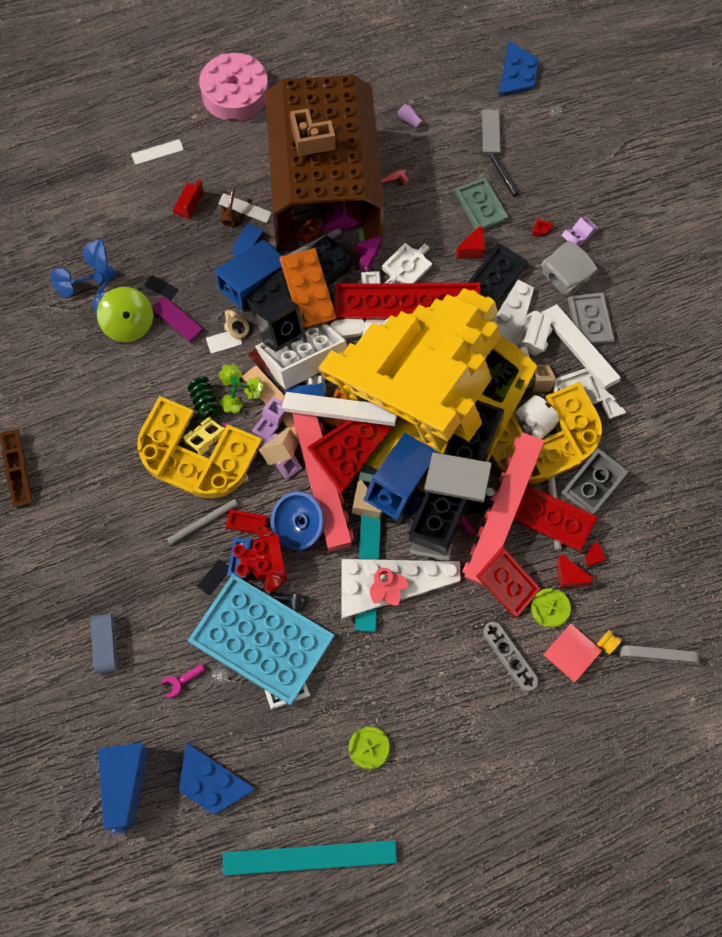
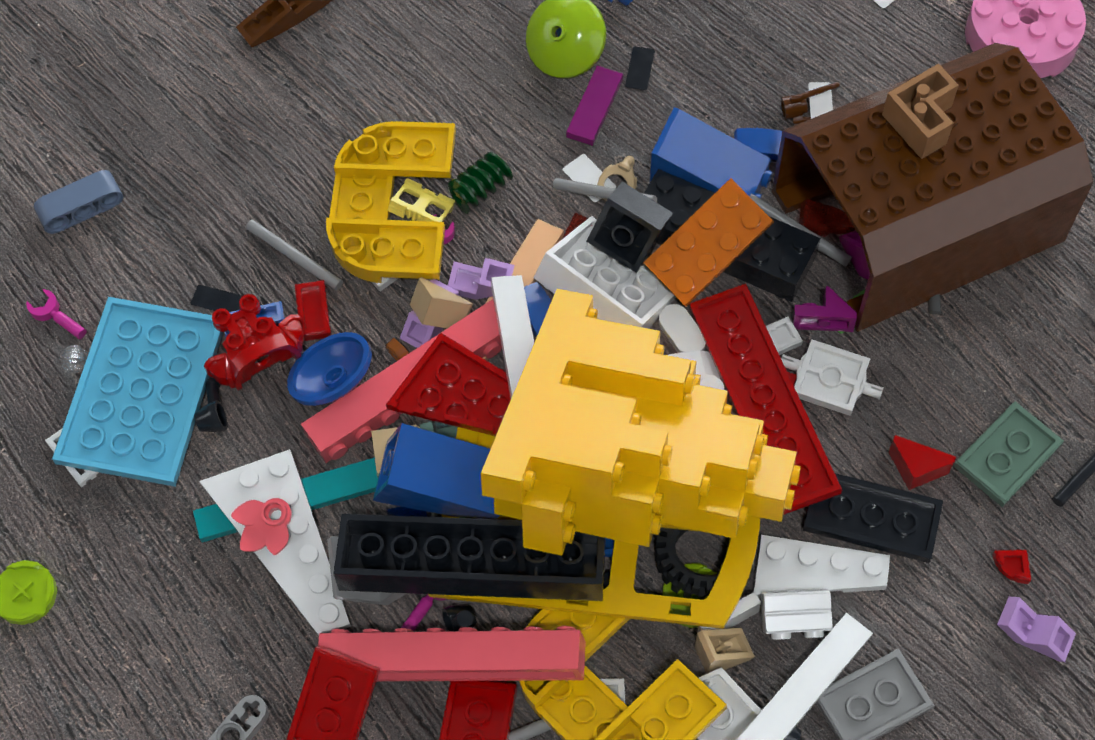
camera: 75 degrees right, 5 degrees down
(188, 200) = (798, 46): red panel -> none
(230, 375) = (489, 220): lime plant -> none
(241, 336) = (587, 189): none -> light grey bar
(299, 480) = (396, 349): none -> dark orange tile
(400, 174) = (996, 308): coral bar -> none
(458, 477) = (455, 551): light grey tile -> none
(536, 417) = (633, 657): white brick -> none
(569, 268) = (948, 630): light grey piece -> none

